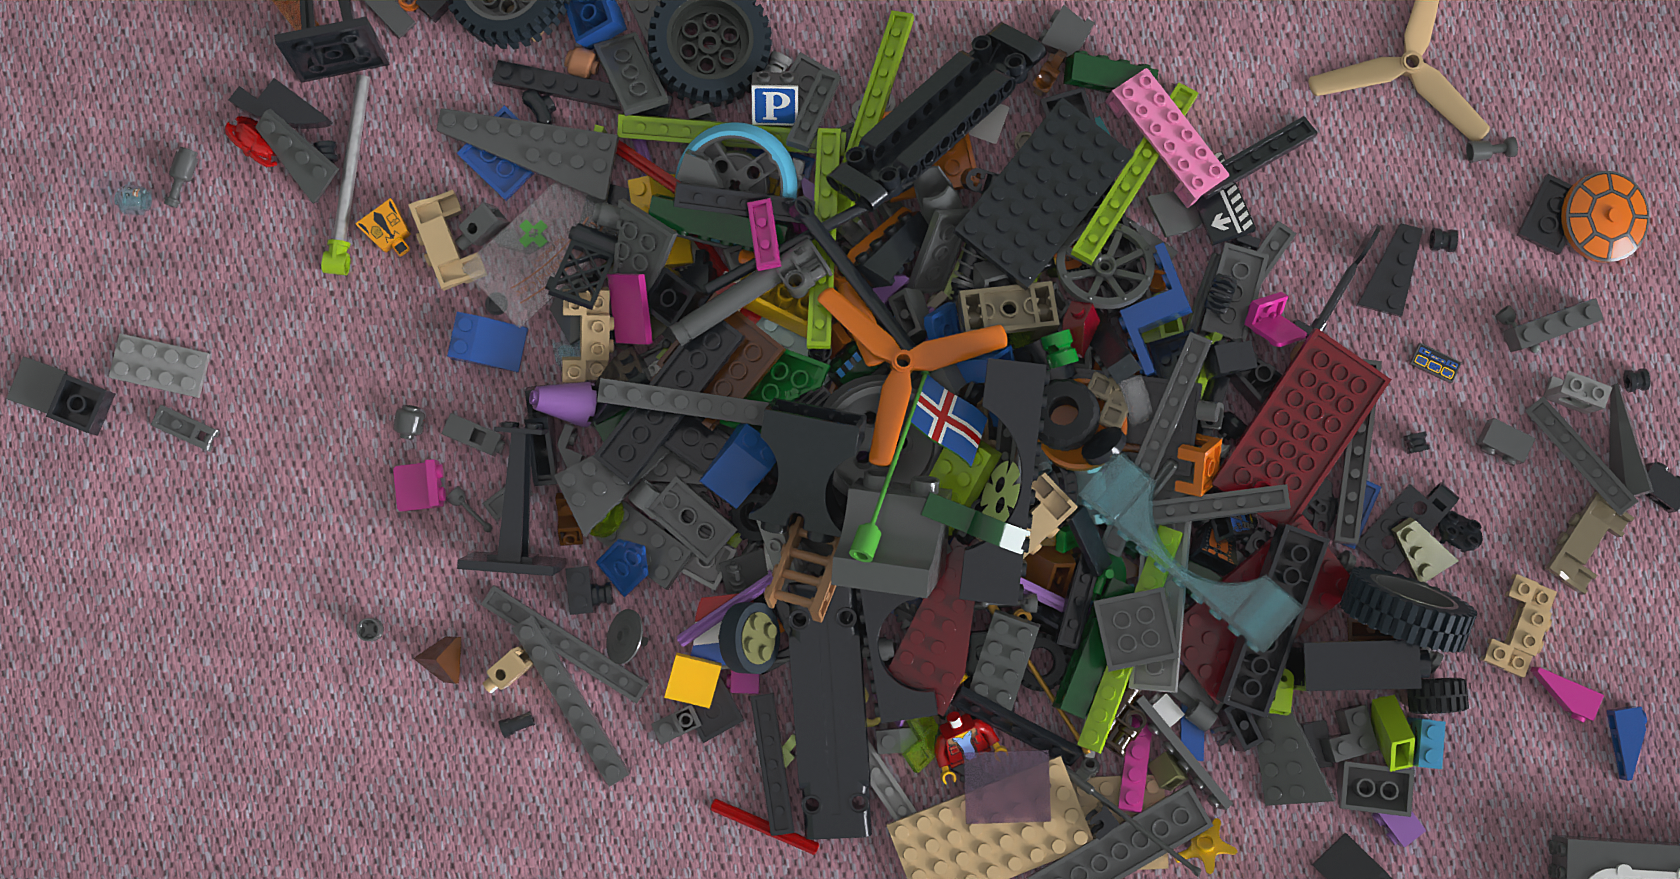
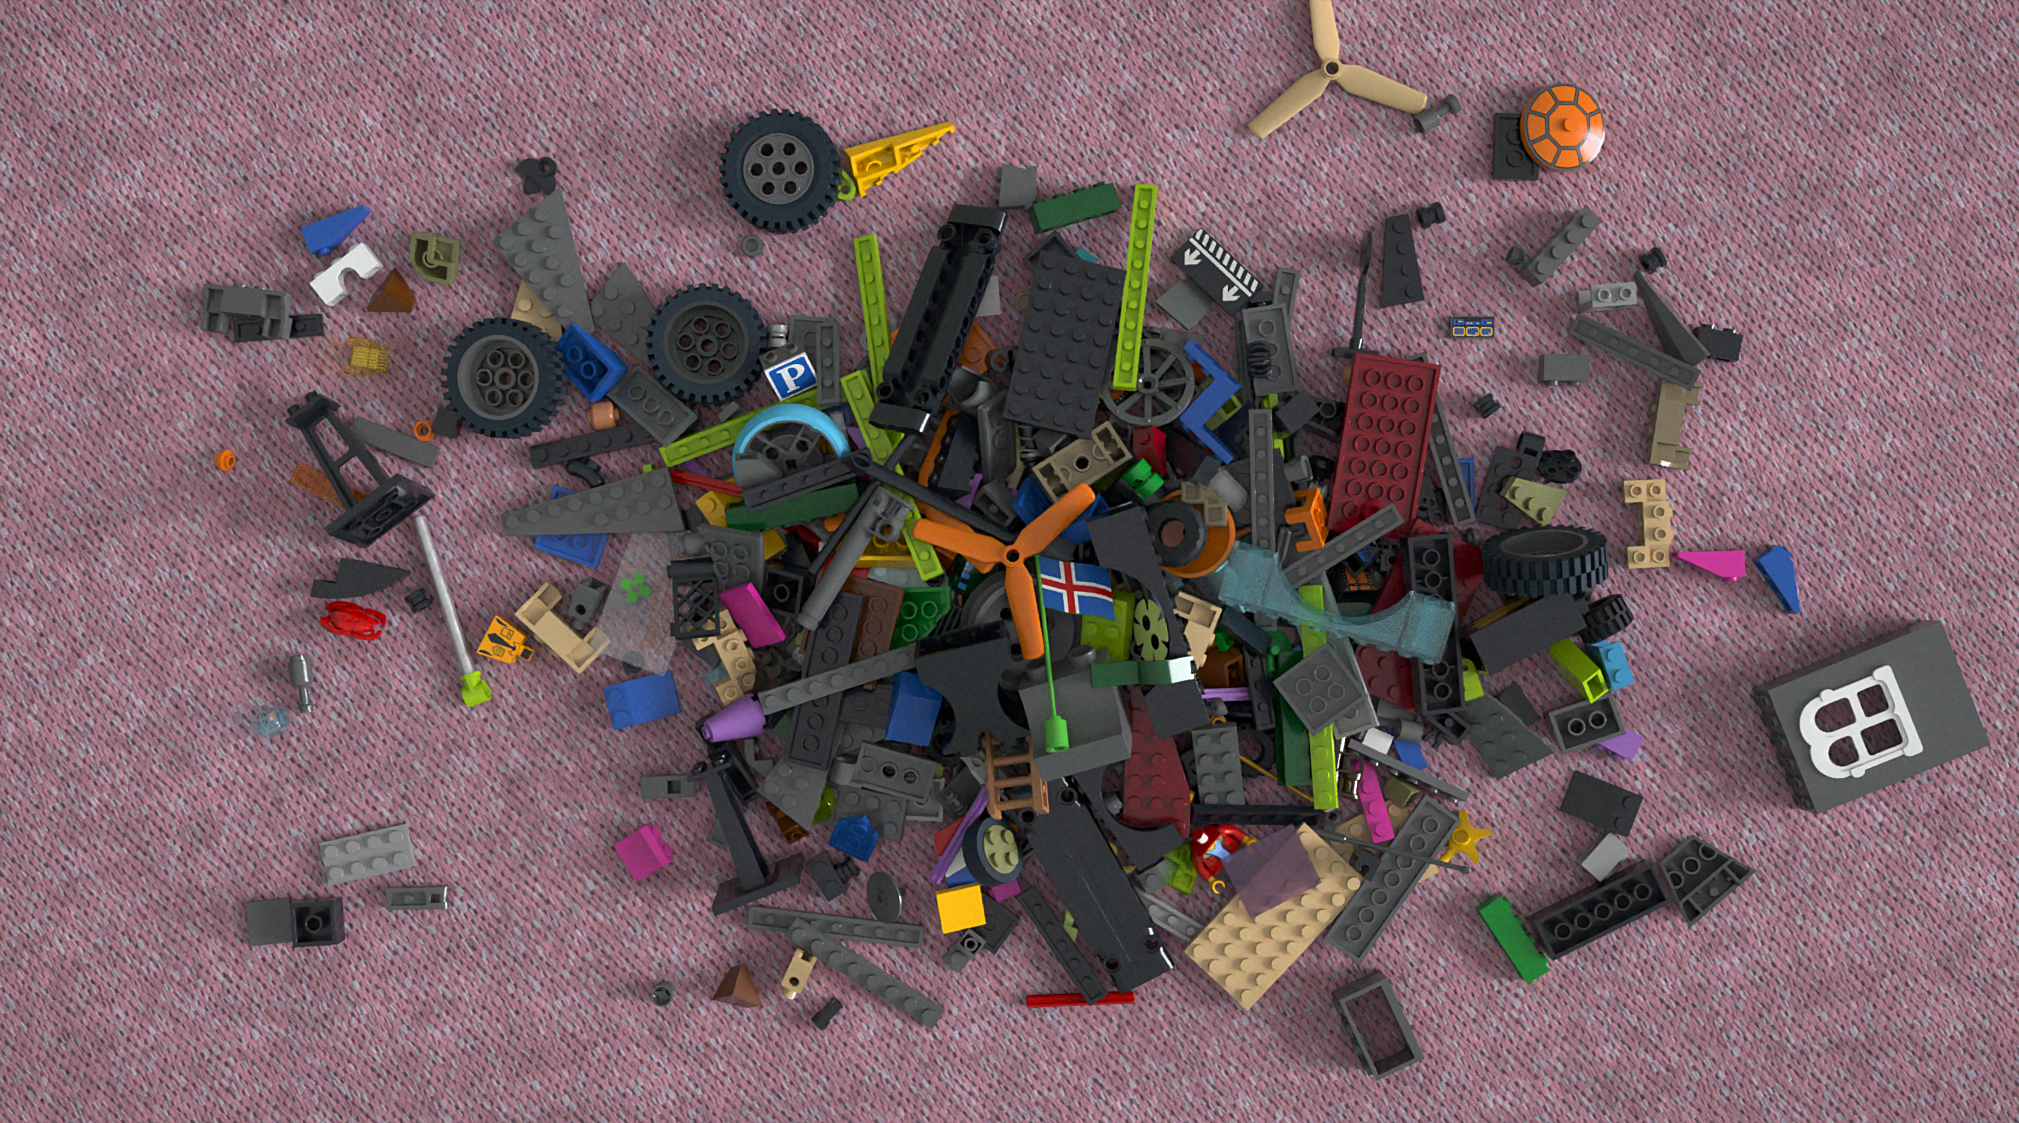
camera: 30 degrees left, 5 degrees up
(301, 159) = (399, 617): dark grey wing -> none
(409, 421) = (608, 800): dark grey head -> none
(457, 498) = (682, 846): dark grey hinge -> none
(764, 234) = (839, 501): dark pink tile -> none
(1048, 73) = (1018, 232): reddish brown plate -> none
(1103, 445) = (1219, 546): black tile -> none
(1169, 135) = (1149, 238): bright pink bracket -> none
(1264, 153) = (1233, 220): black plate -> none
(1266, 320) = (1314, 364): dark pink bracket -> none
(1355, 736) = (1547, 689): dark grey brick -> none

